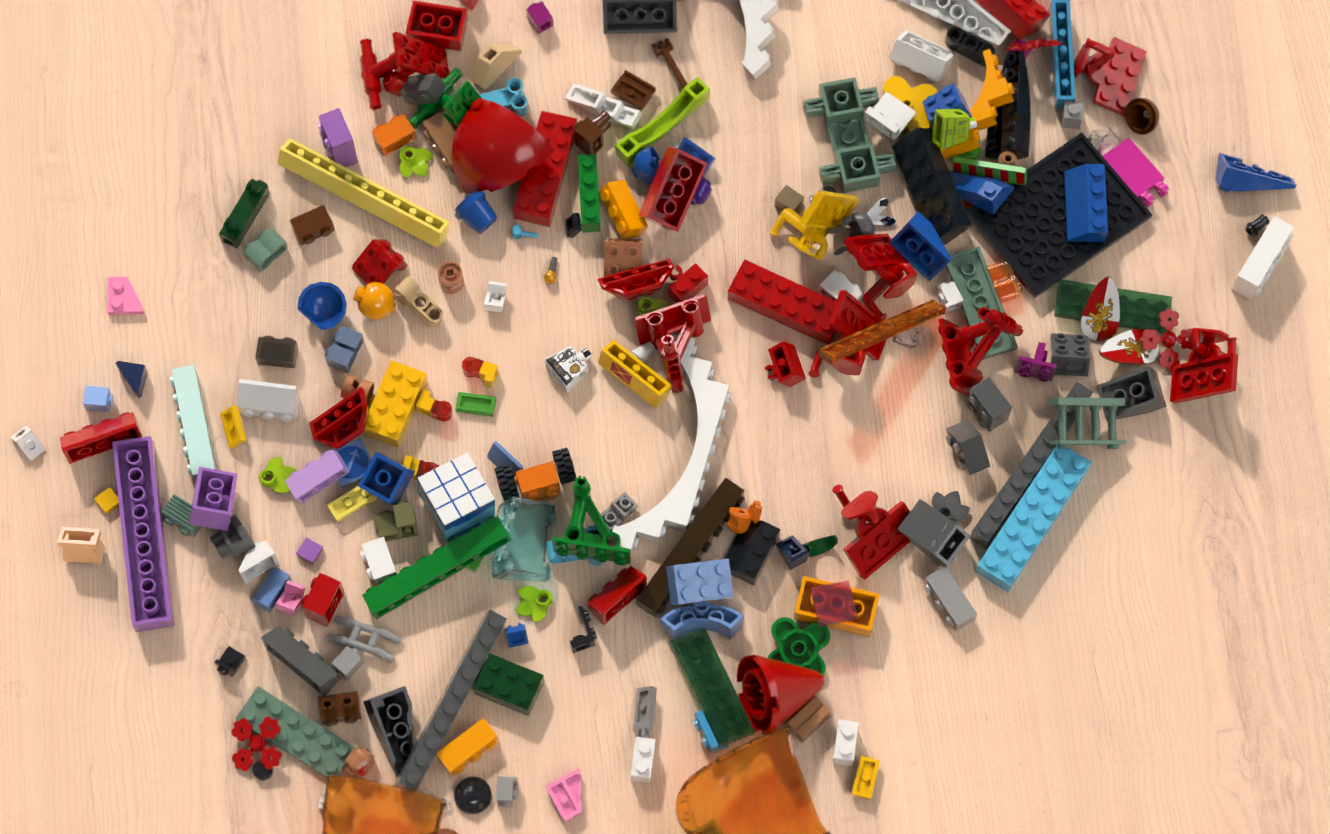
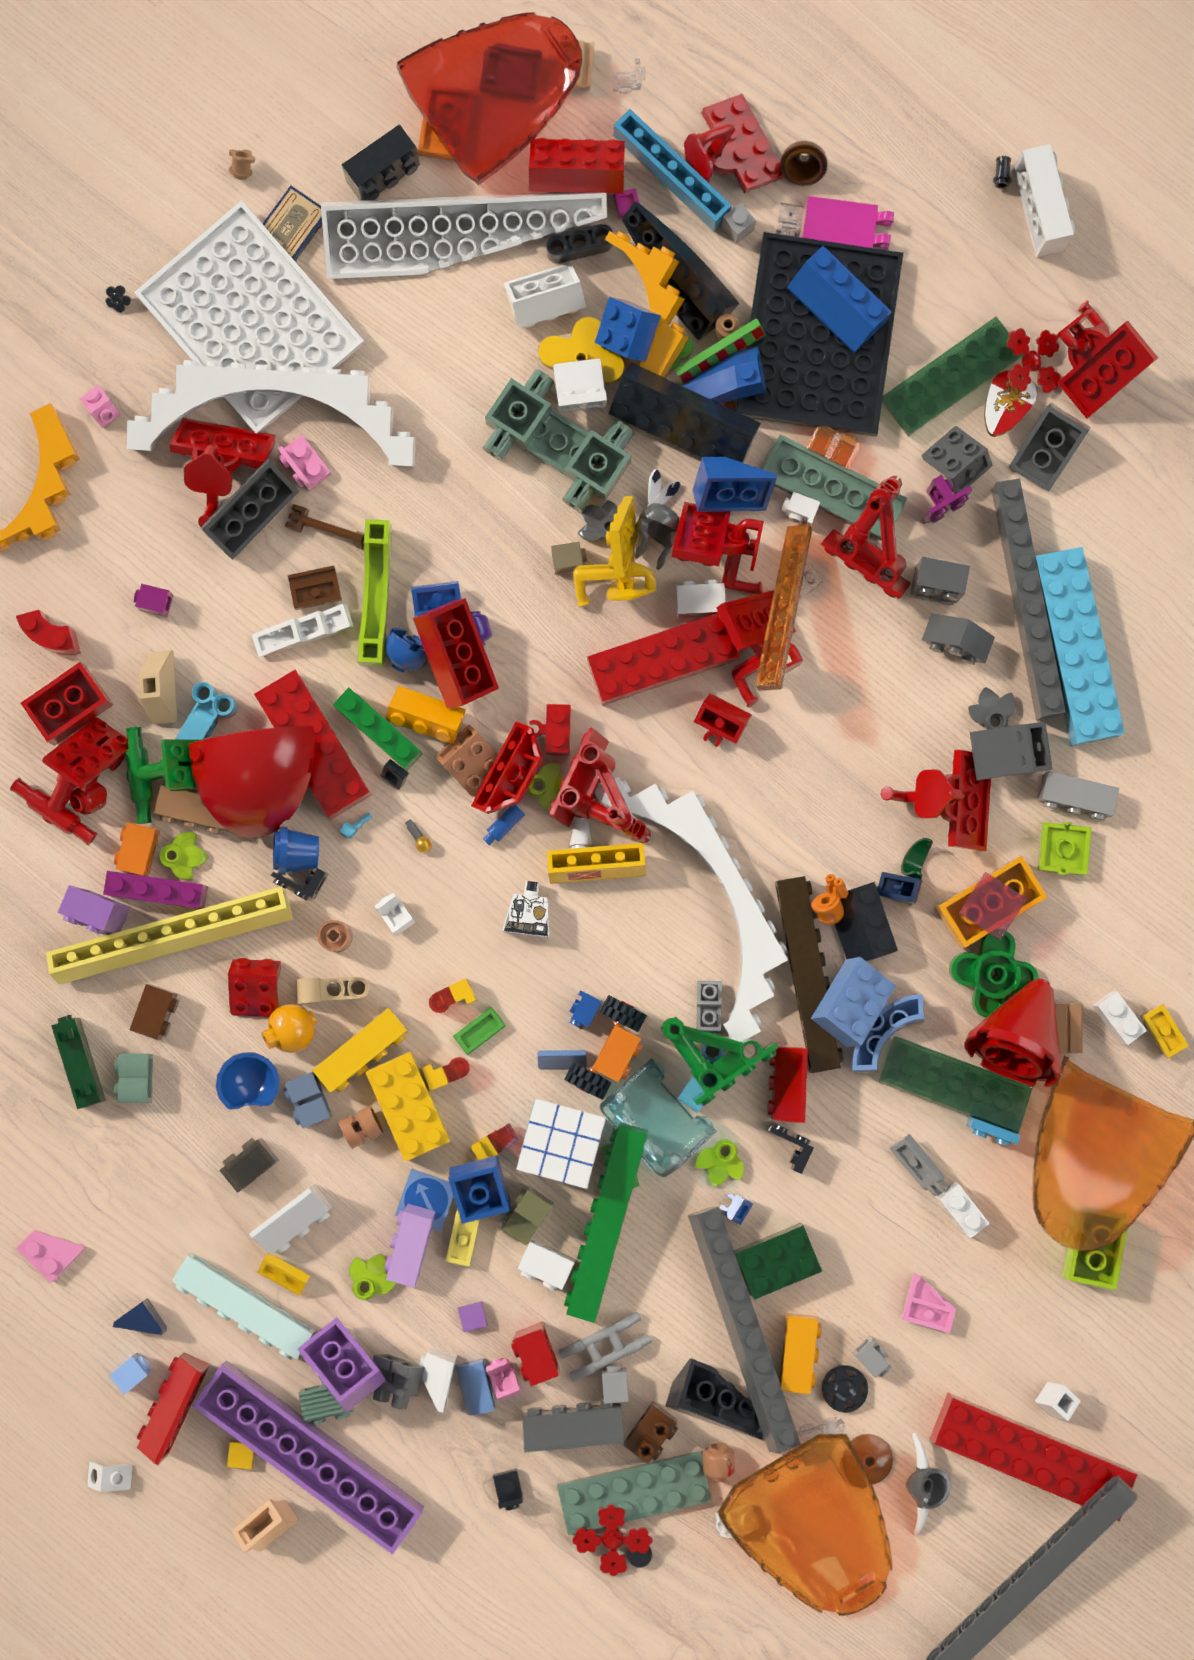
camera: 45 degrees left, 15 degrees up
(342, 421) = (382, 1175): red wedge -> none
(380, 163) = (155, 890): none -> magenta brick
(401, 349) = (360, 1050): none -> yellow brick
(423, 89) = (122, 782): dark grey brick -> none
(466, 242) = (314, 881): none -> black bracket
(544, 445) = (584, 1010): none -> blue brick
(590, 133) = (321, 672): reddish brown brick -> none
(605, 307) = (504, 824): none -> blue cylinder
(696, 22) = (304, 462): none -> bright pink bracket
(911, 621) = (1064, 848): none -> lime plate
(951, 127) = (655, 345): lime torso -> none
(1033, 44) = (640, 187): red plant -> none
(1094, 405) = (1025, 505): sand green fence -> none
(1101, 311) = (953, 392): shield -> none
(1237, 176) = (946, 138): blue wedge -> none

